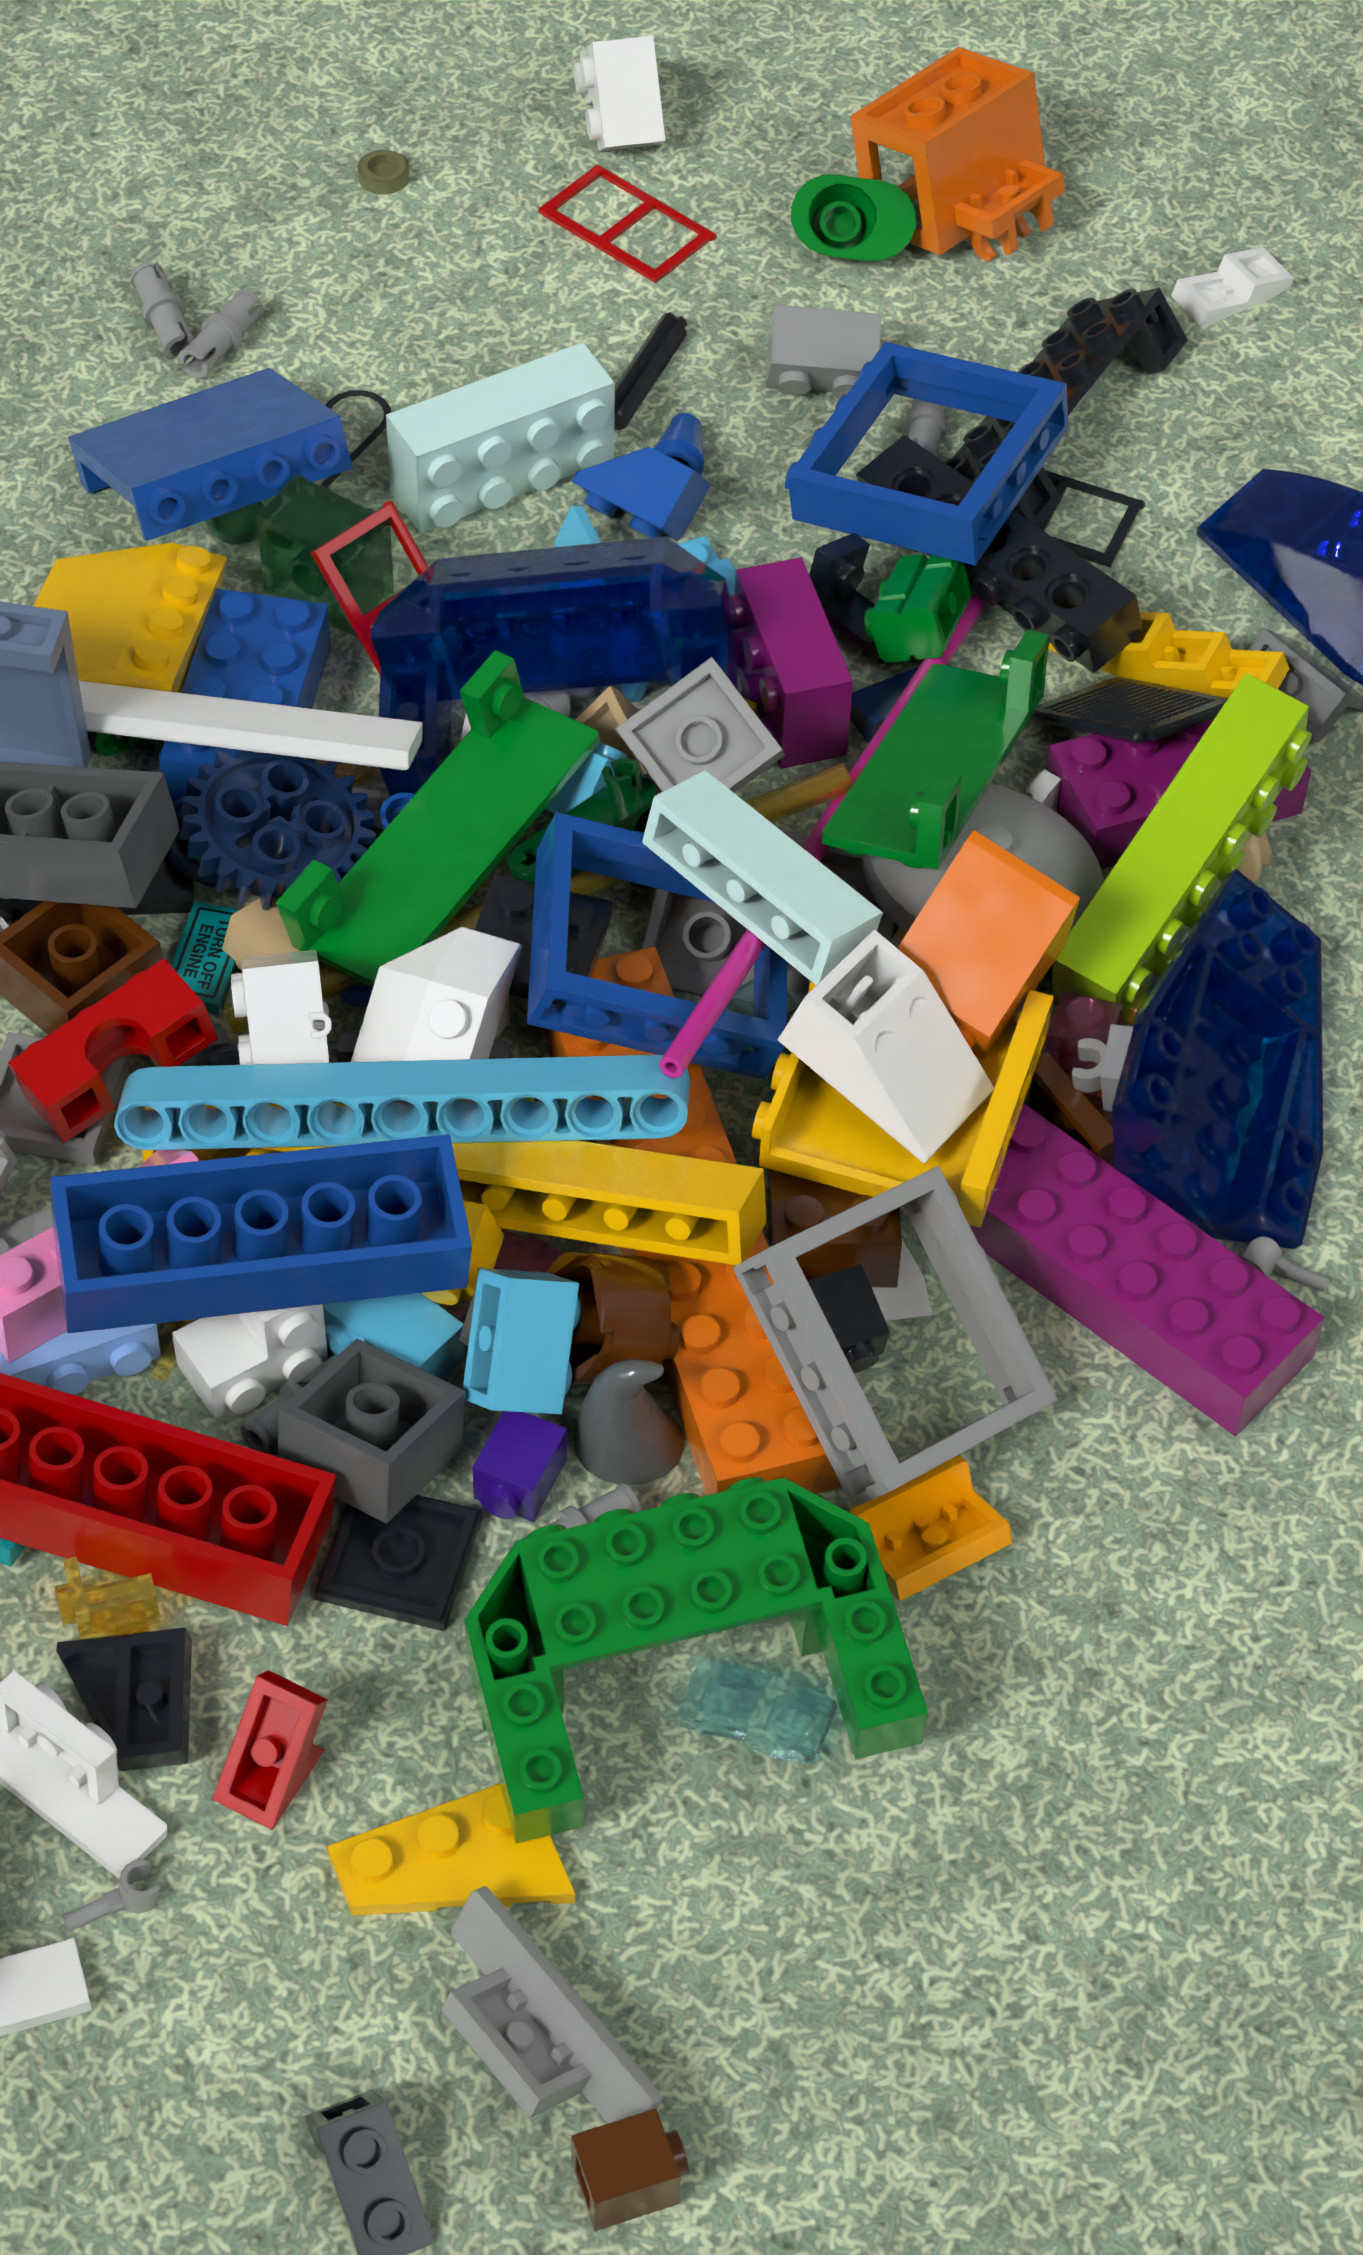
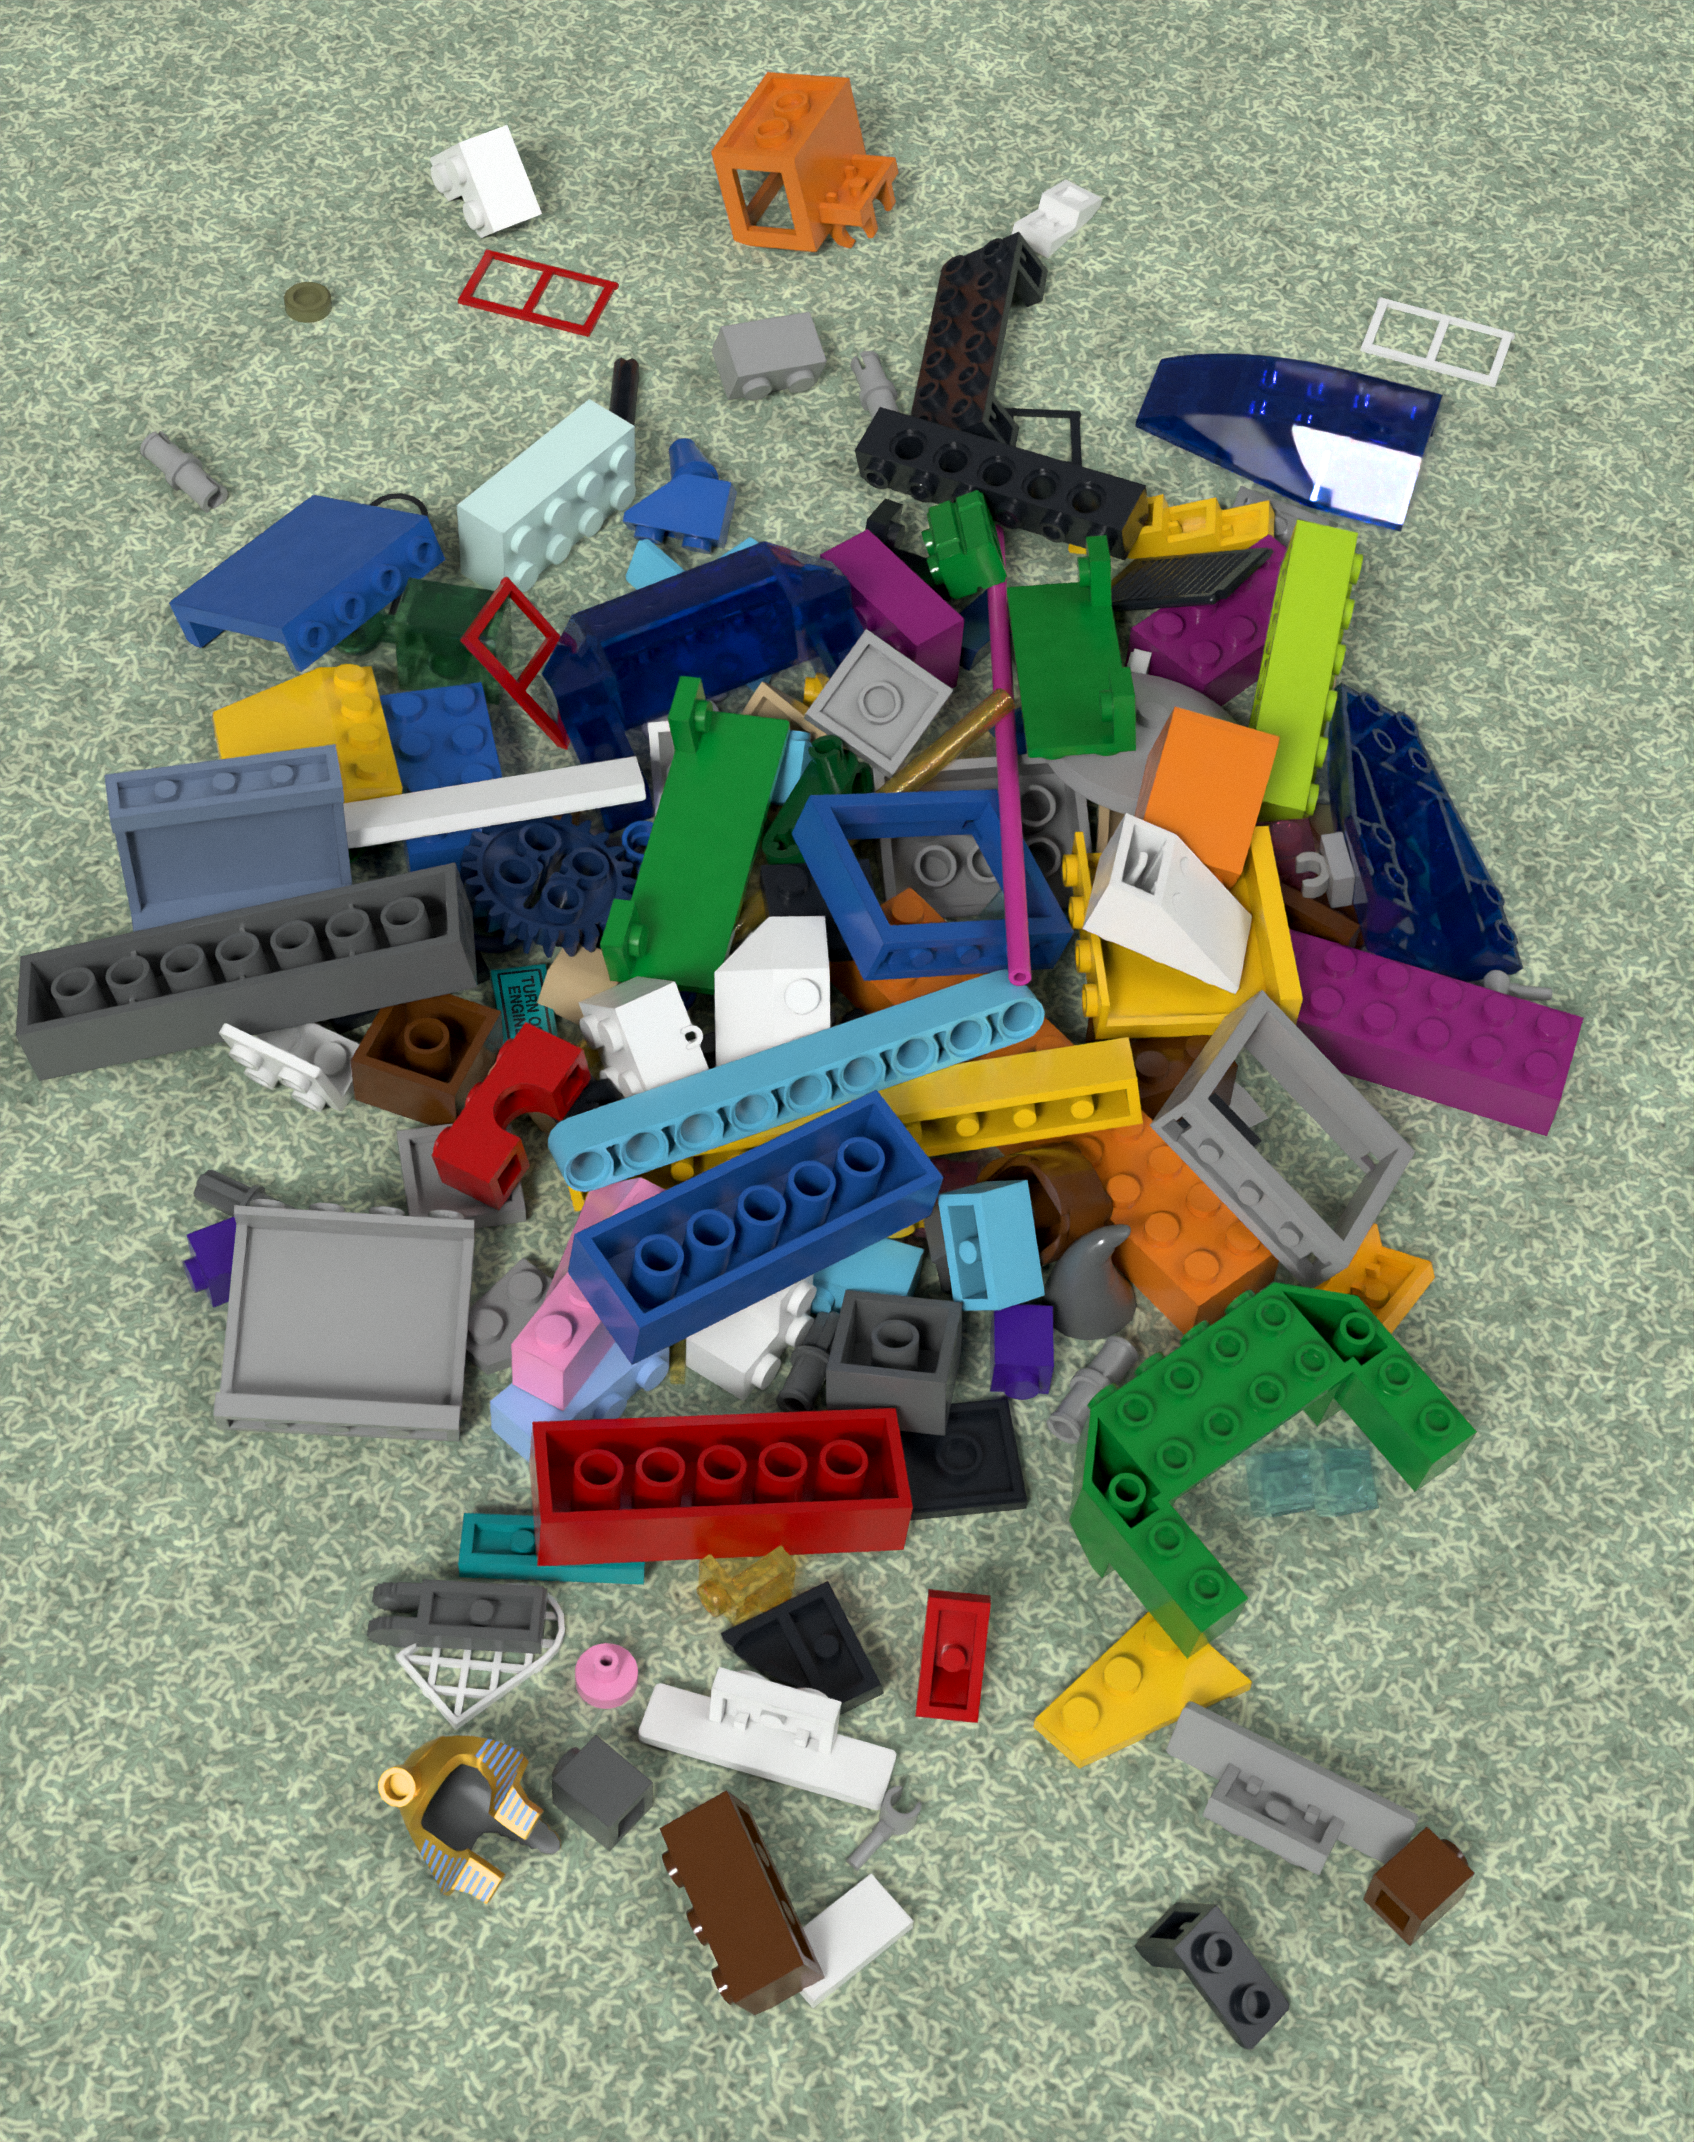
camera: 25 degrees left, 0 degrees up
(221, 334) = (245, 478): light grey pin -> none
(759, 875) = (1001, 799): light aqua brick -> none
(853, 217) = (736, 238): green piece -> none
(913, 521) = (915, 473): blue window -> none

